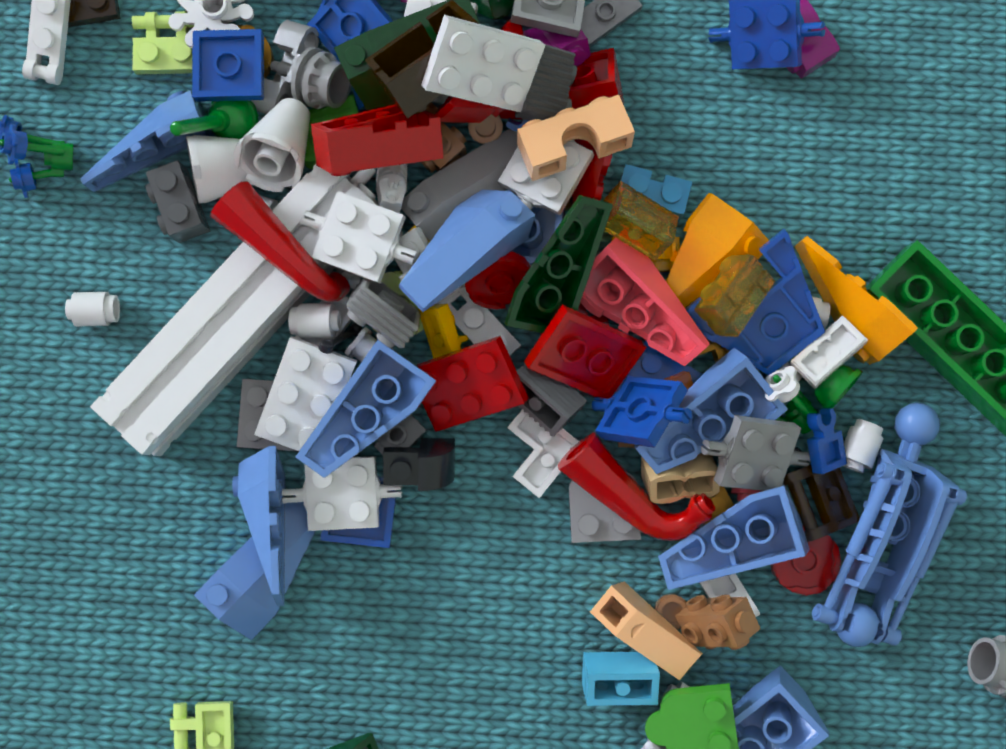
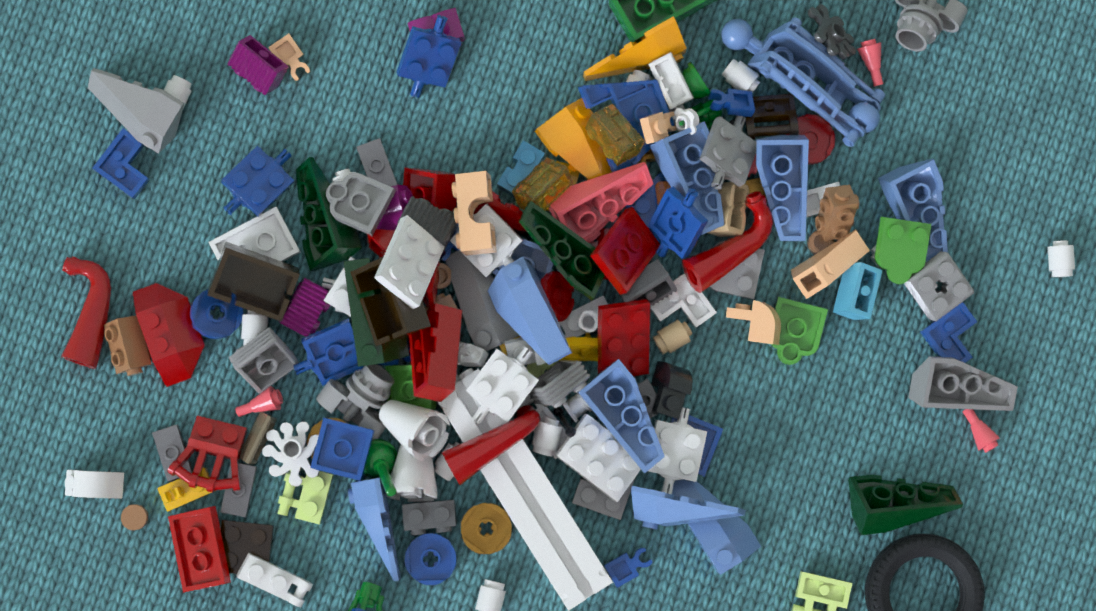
camera: 85 degrees left, 0 degrees up
(108, 210) = (420, 569): none -> blue plate
(171, 262) = (486, 543): none -> pearl gold plate
(175, 468) = (624, 568): none -> blue plate
(476, 323) = (581, 325): none -> white axle
(491, 449) = (672, 337): none -> tan brick
(544, 563) = (763, 318): none -> light nougat brick
(547, 609) = (800, 329): none -> bright green plate
(762, 347) = (657, 126): none -> light nougat plate
(943, 612) = (871, 56): none -> coral cone
(958, 550) = (831, 33): none -> dark grey animal

